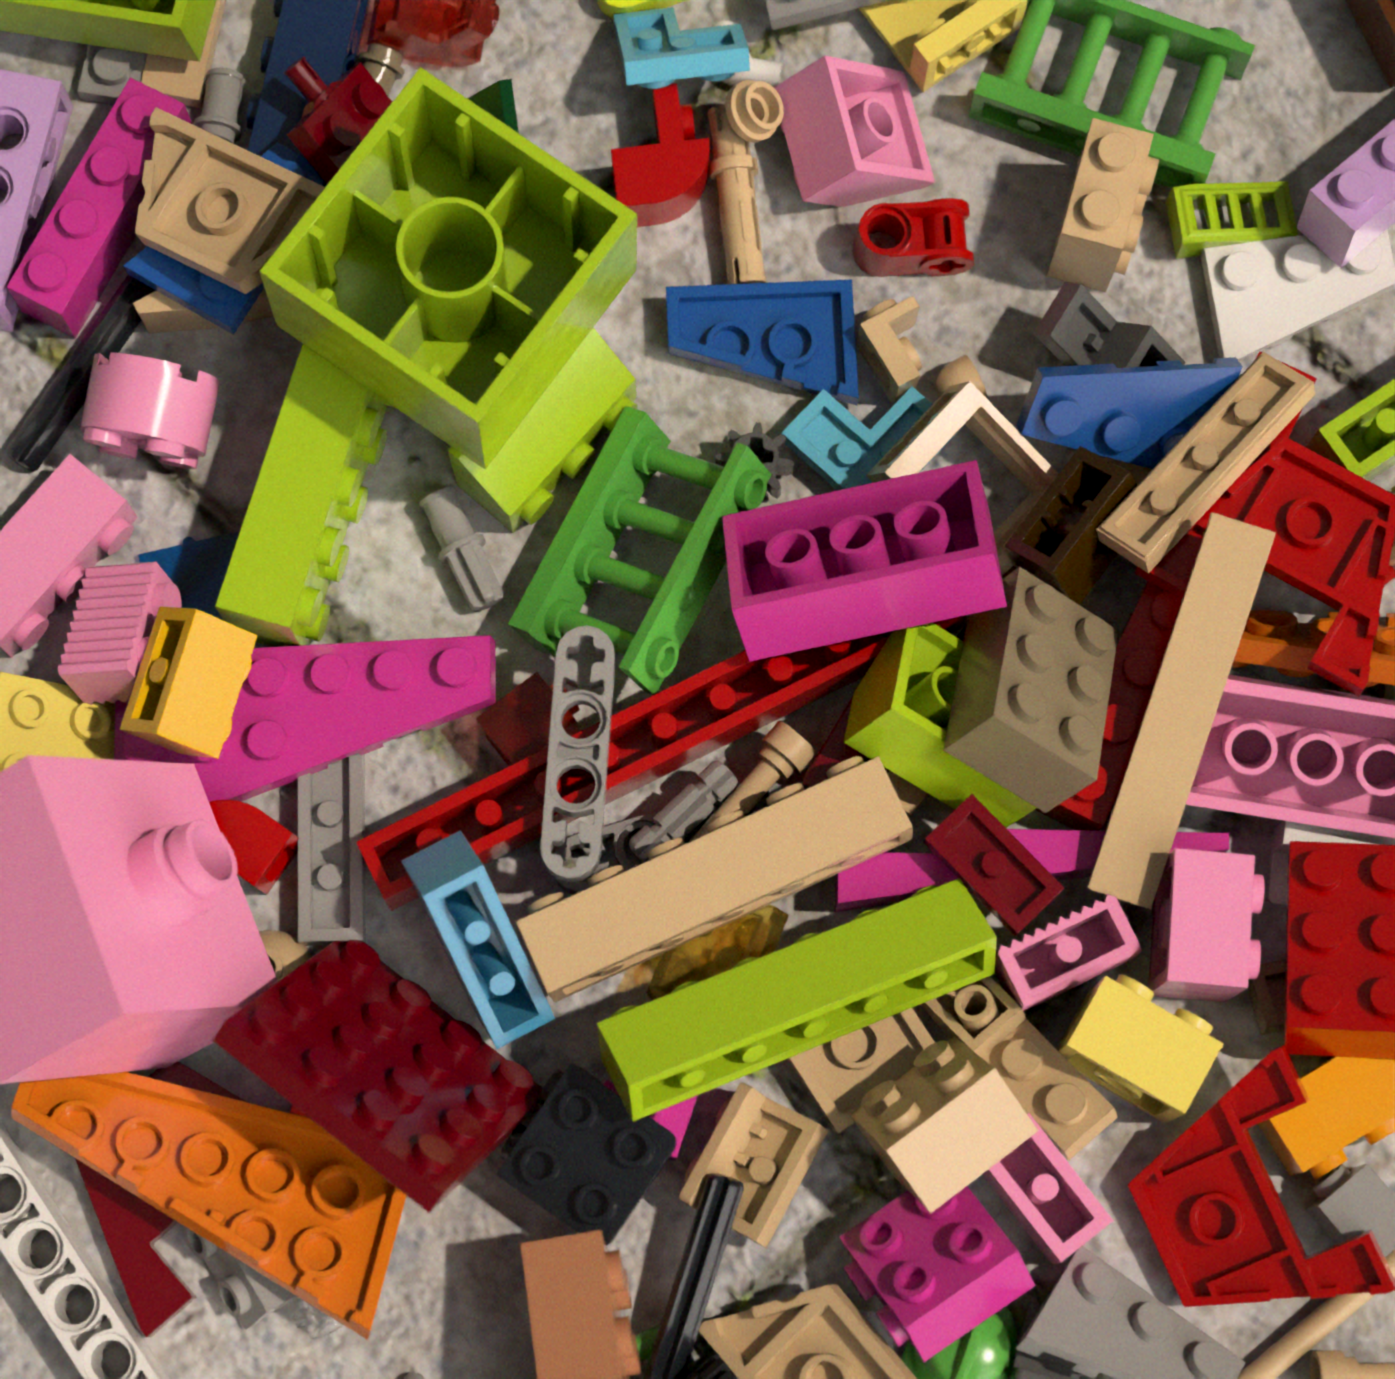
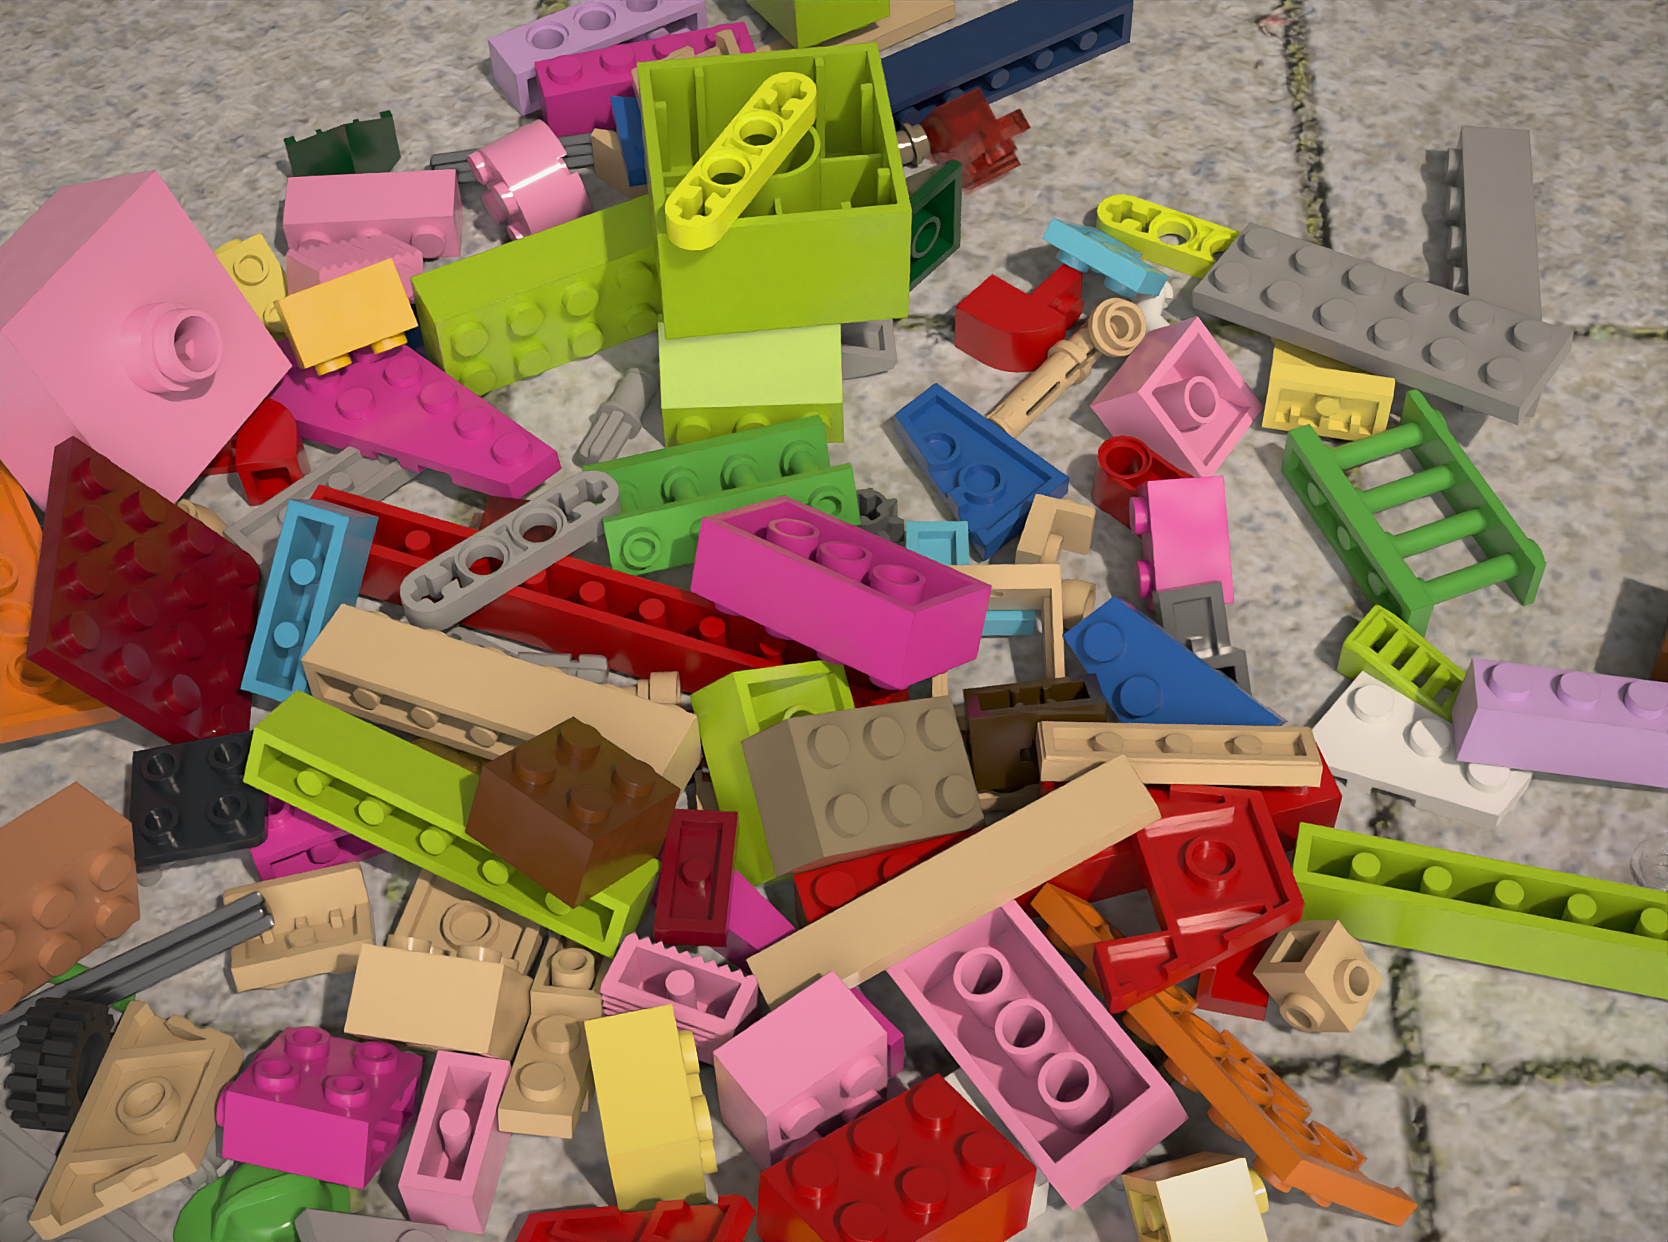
camera: 50 degrees right, 25 degrees down
(466, 293) = (732, 155): none -> neon yellow beam
(899, 916) = (572, 811): none -> reddish brown brick
(1001, 264) = (1181, 535): none -> brick
(1104, 206) = (1303, 563): tan brick -> none

